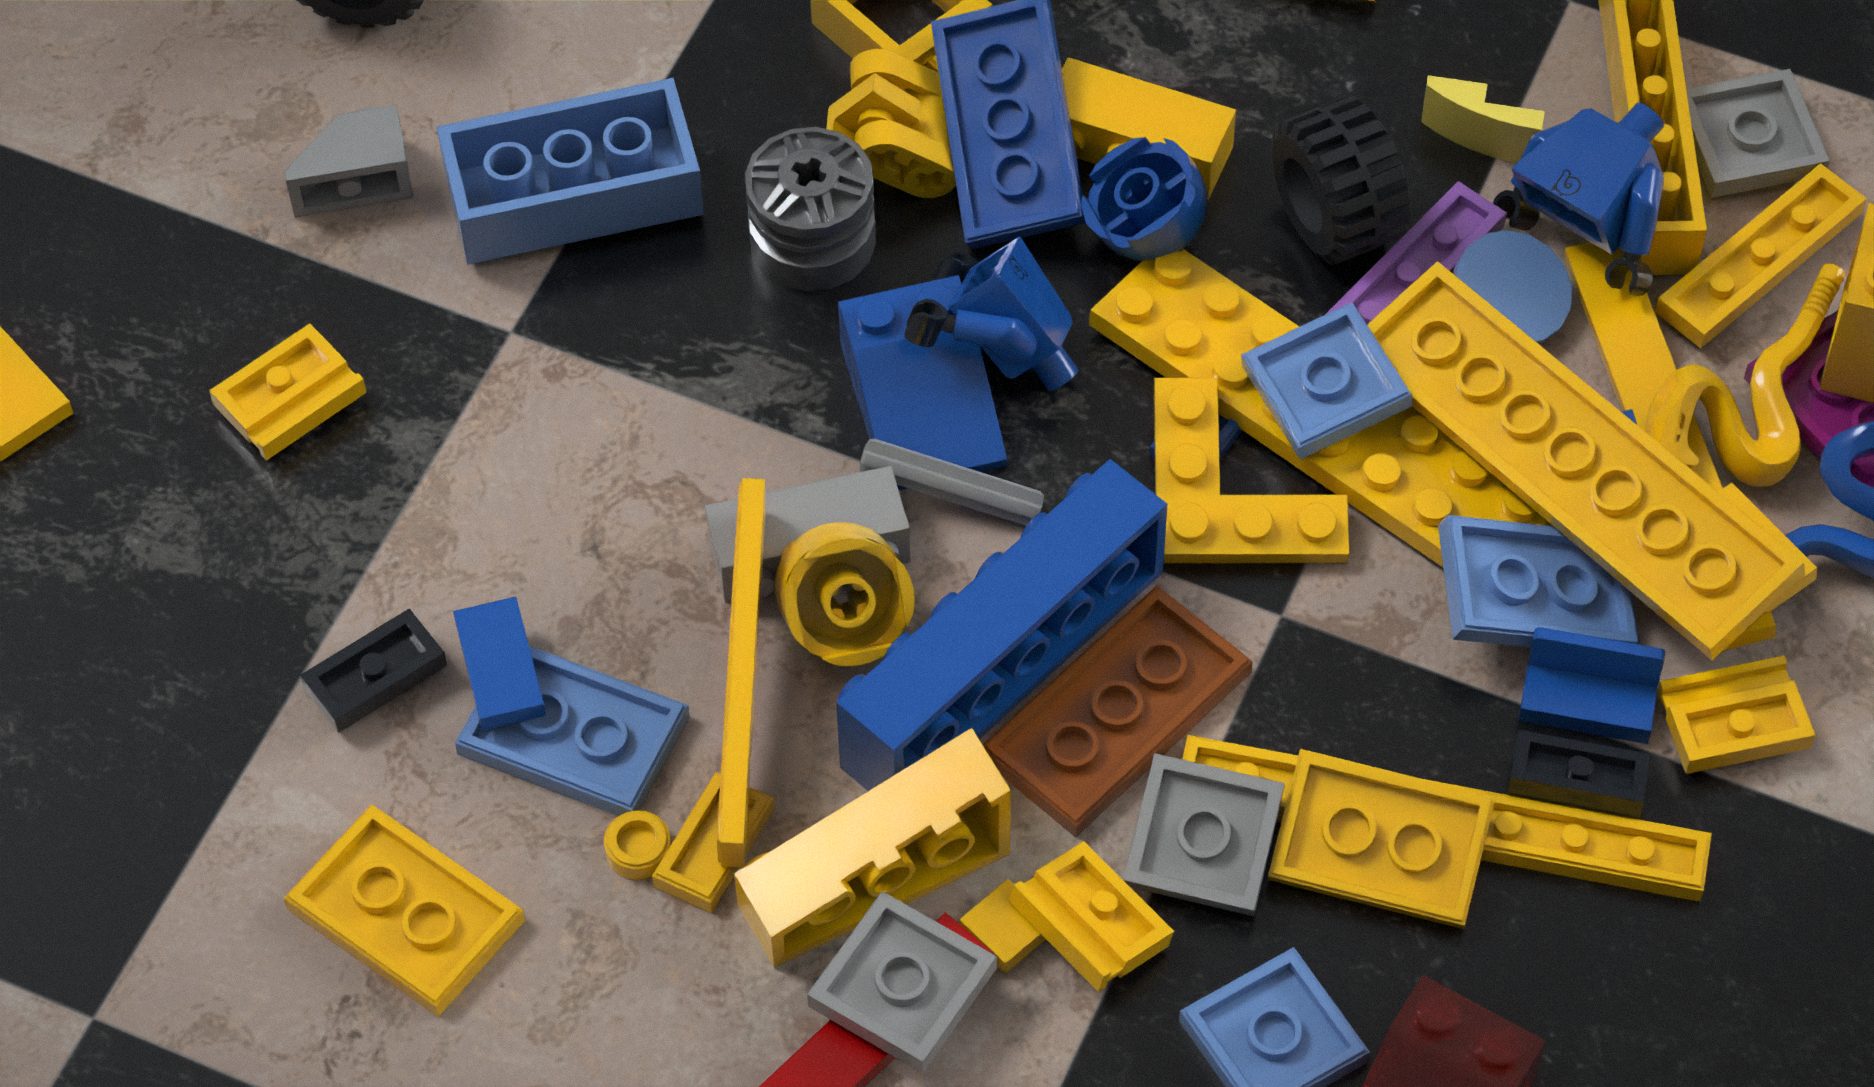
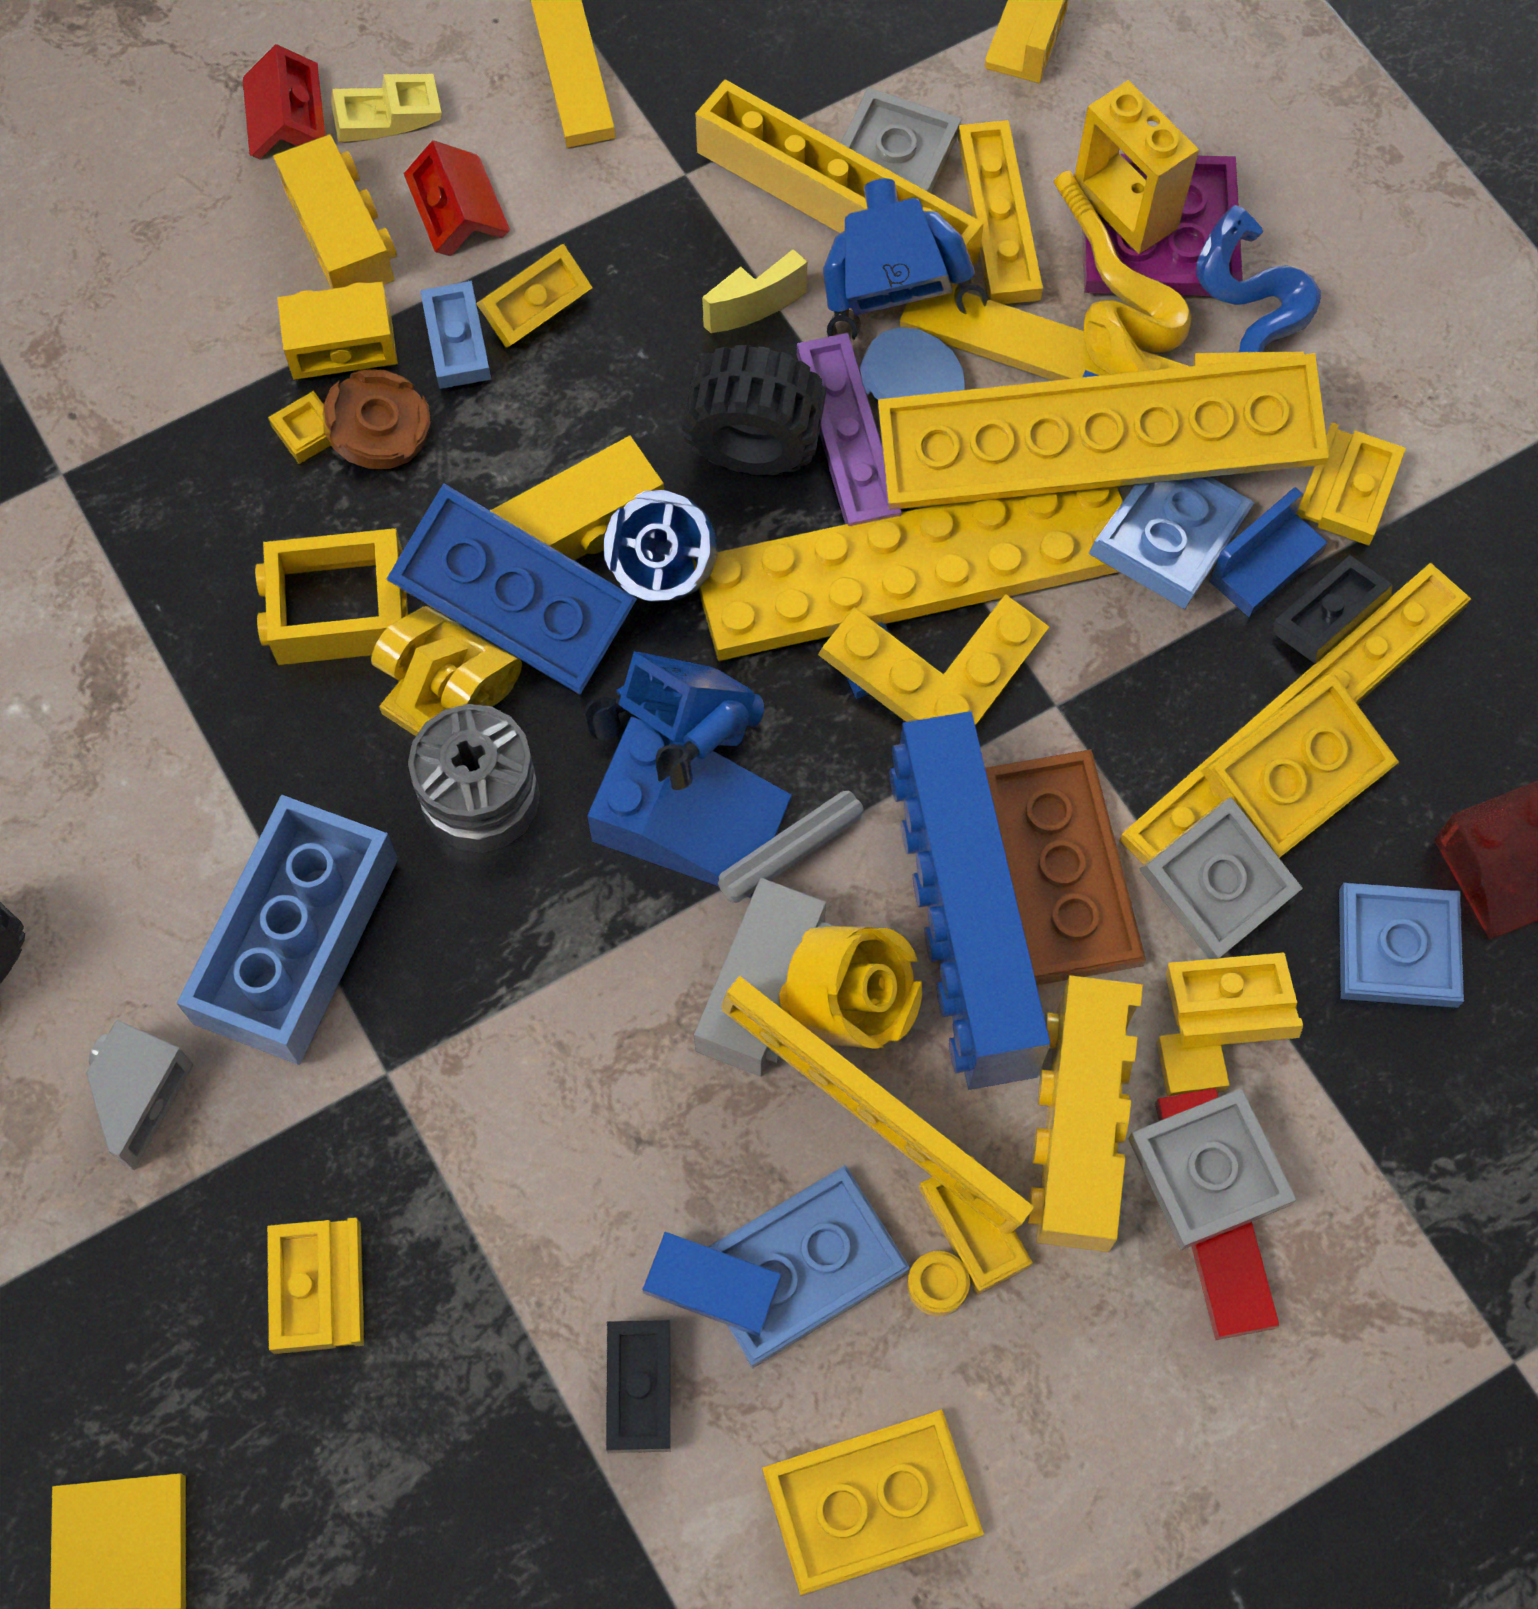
camera: 55 degrees left, 10 degrees up
(1326, 380) = (914, 539): medium blue tile -> none

